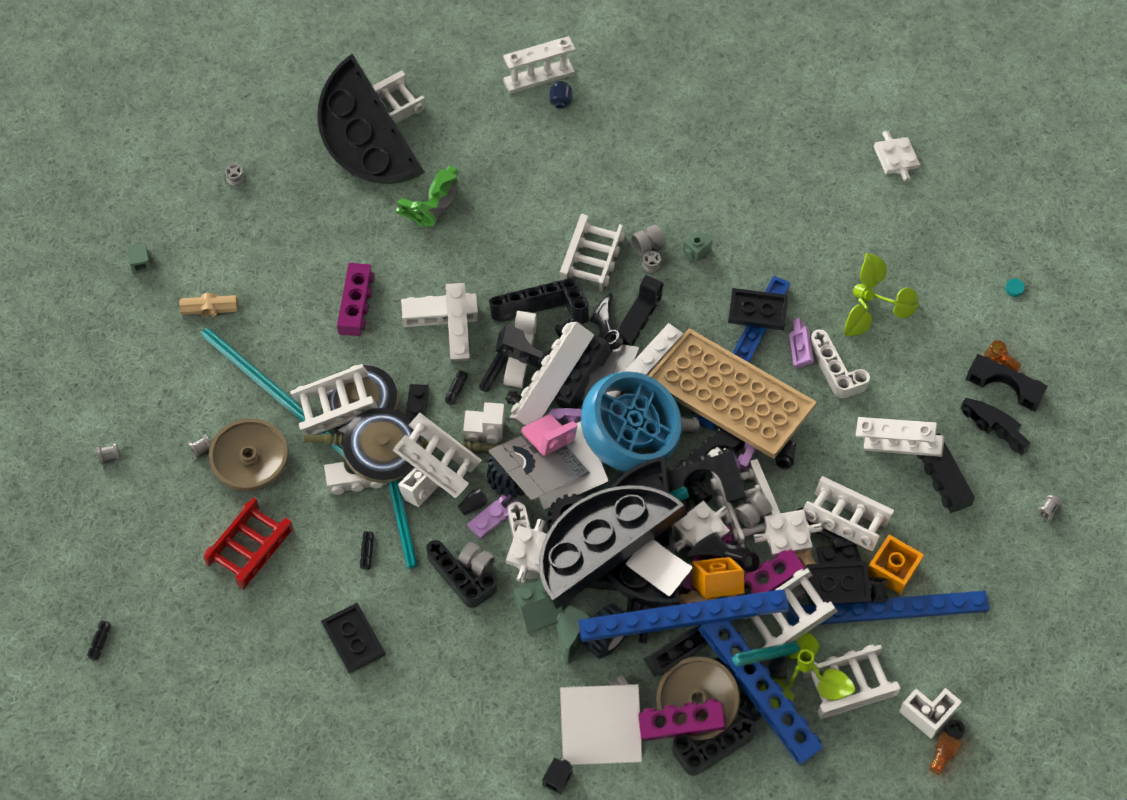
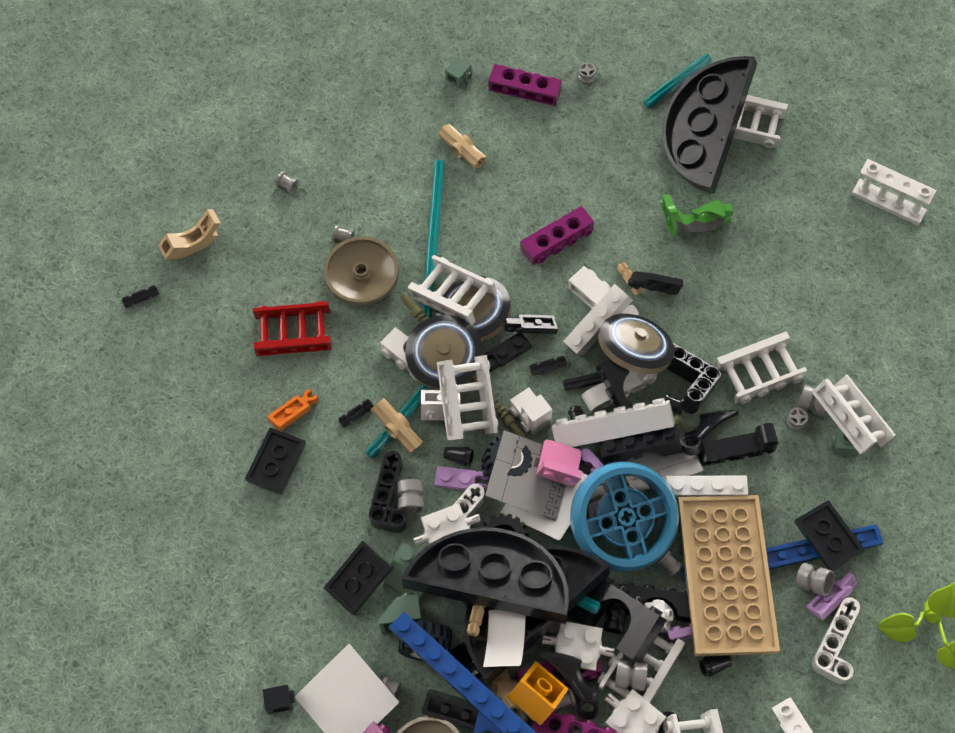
camera: 55 degrees right, 5 degrees up
(92, 548) = (195, 239): none -> tan arch
(190, 229) = (524, 84): none -> magenta brick
(303, 123) = (677, 80): none -> teal axle
(321, 594) = (292, 410): none -> orange plate
(409, 525) = (396, 425): none -> tan piece
(413, 371) = (532, 324): none -> black hinge
(437, 280) = (627, 273): none -> tan axle
(461, 264) = (655, 282): none -> black hinge
(504, 309) = (636, 343): none -> dish
(510, 644) = (358, 578): none -> black plate
(560, 94) = (886, 230): dark blue head -> none
(626, 576) = (475, 620): none -> tan axle
(682, 222) = (853, 414): none -> white fence
(781, 342) = (815, 579): none -> light grey wheel

